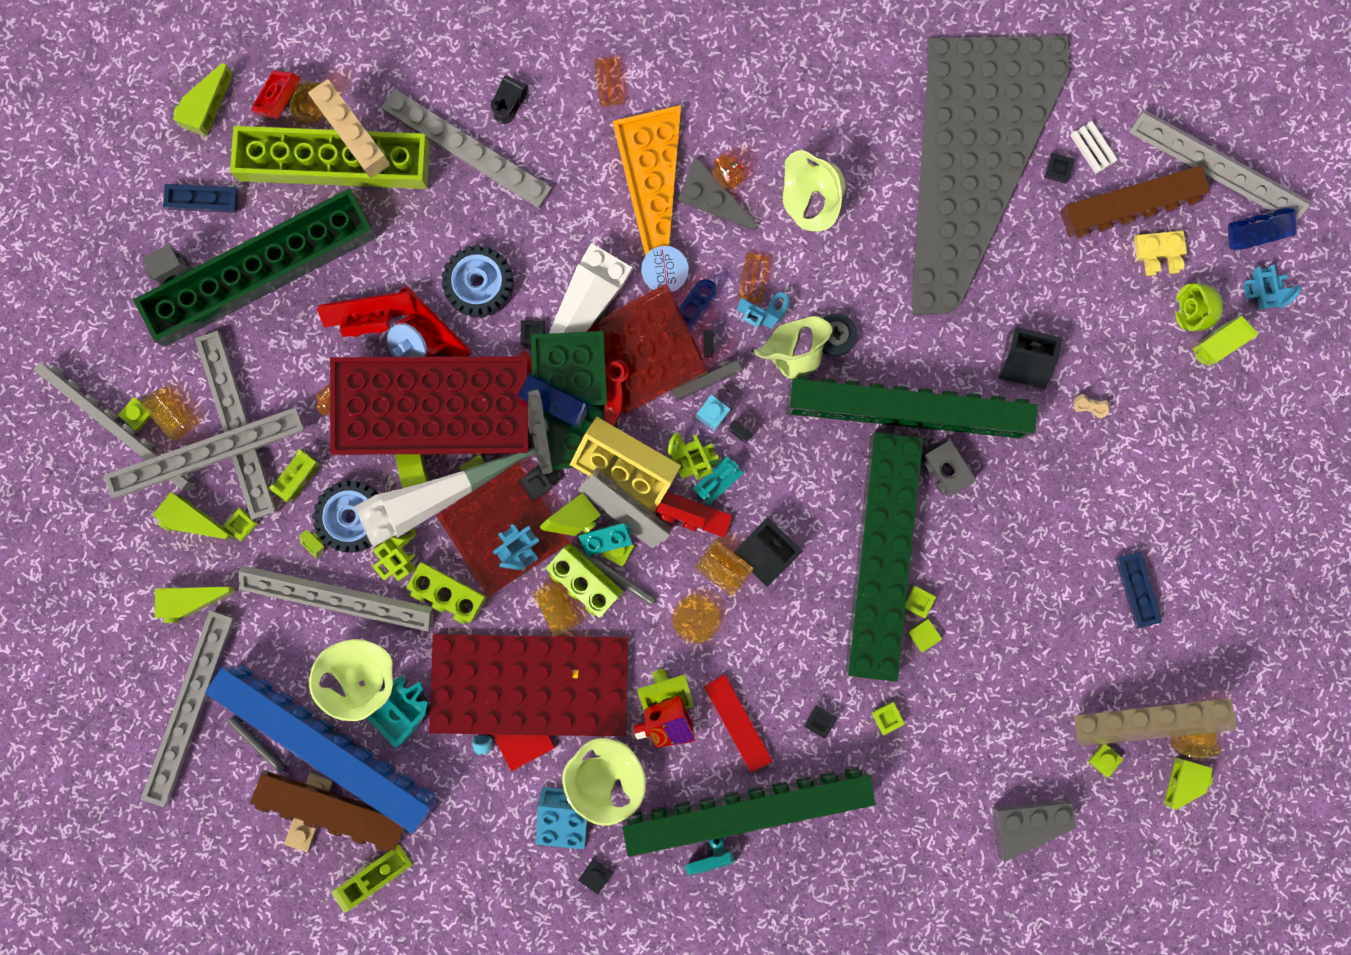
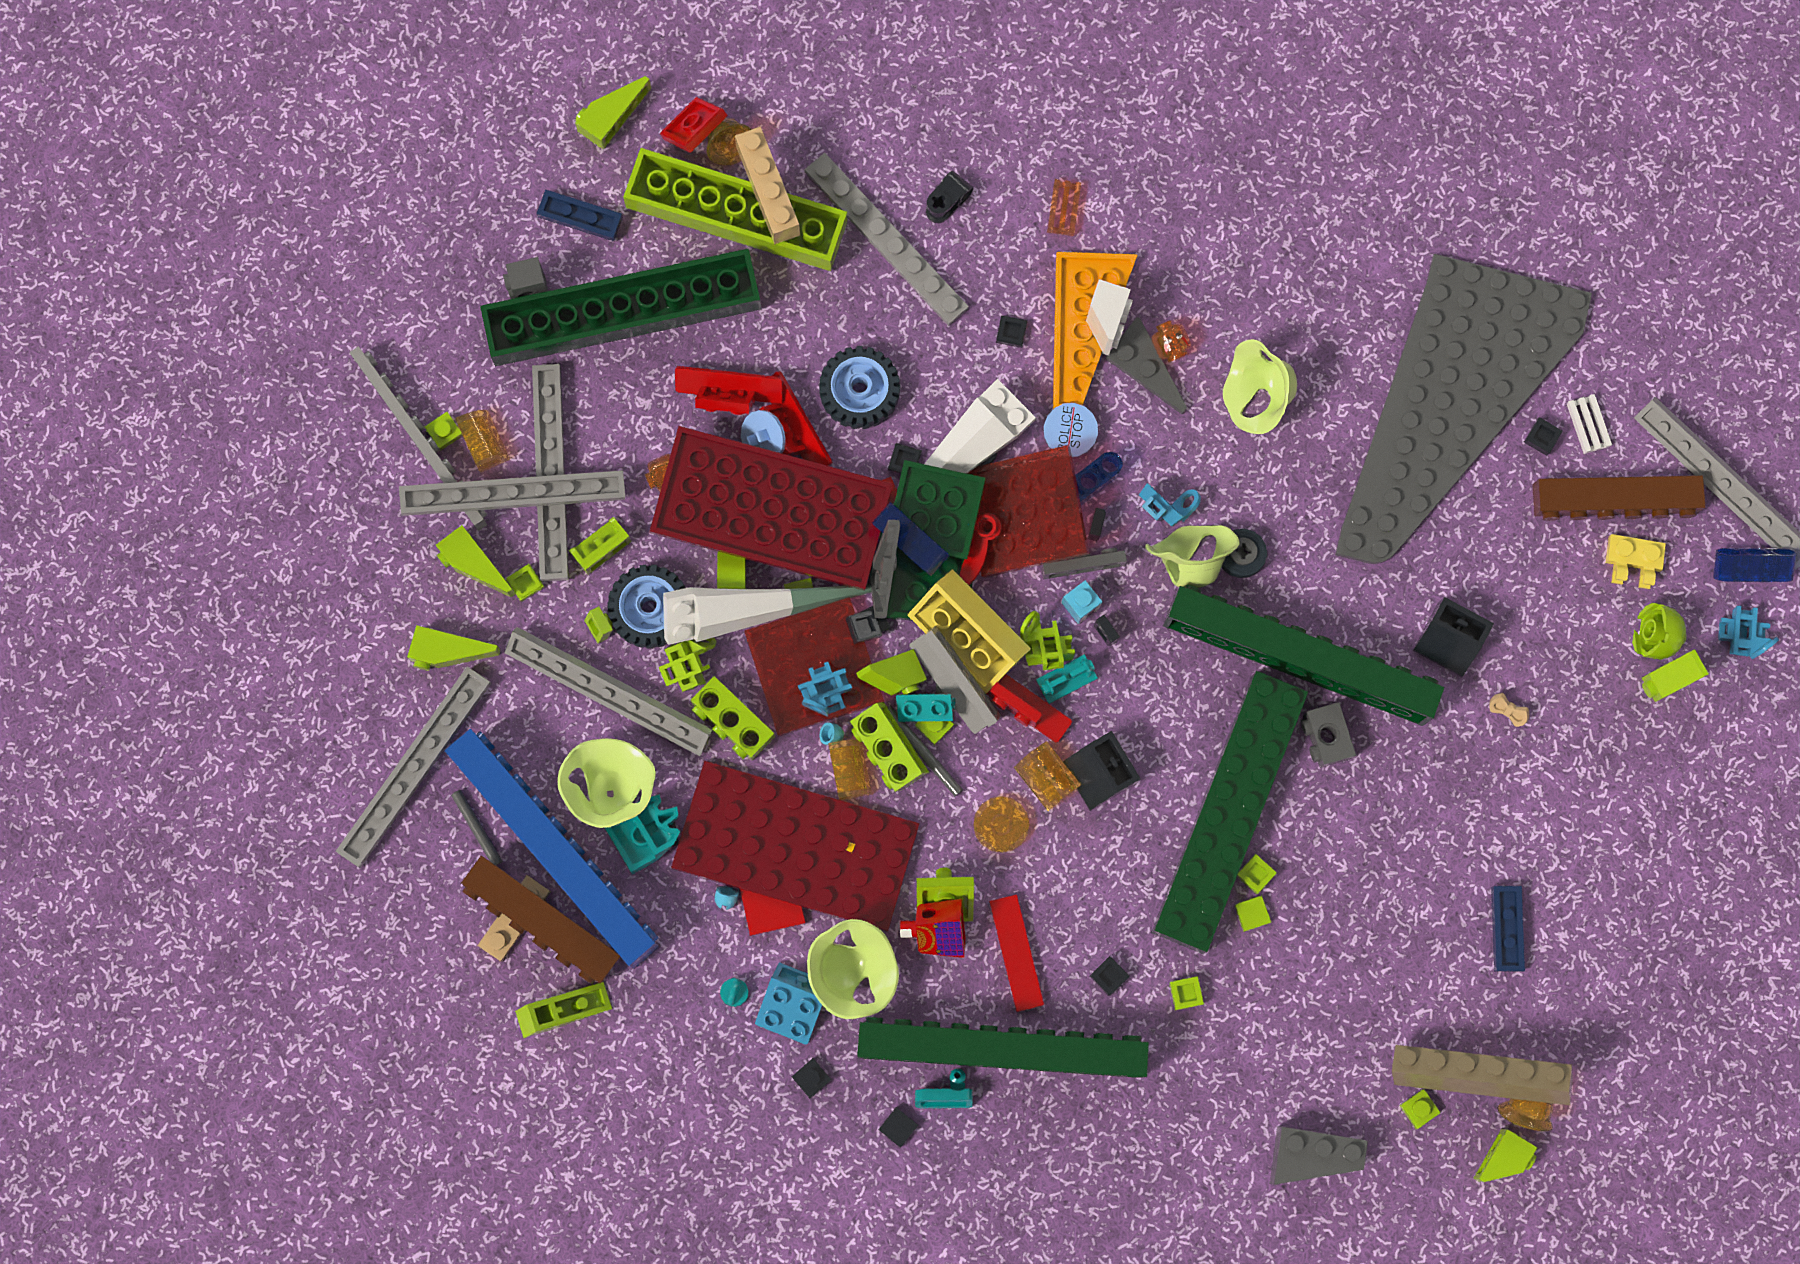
camera: 15 degrees right, 5 degrees down
(511, 822) = (734, 992): none -> teal tile
(533, 582) = (831, 733): none -> medium azure hinge
(593, 199) = (1011, 331): none -> black tile
(668, 159) = (1106, 311): none -> white slope
(678, 897) = (898, 1127): none -> black tile
(750, 297) = (1177, 445): clear orange tile -> none

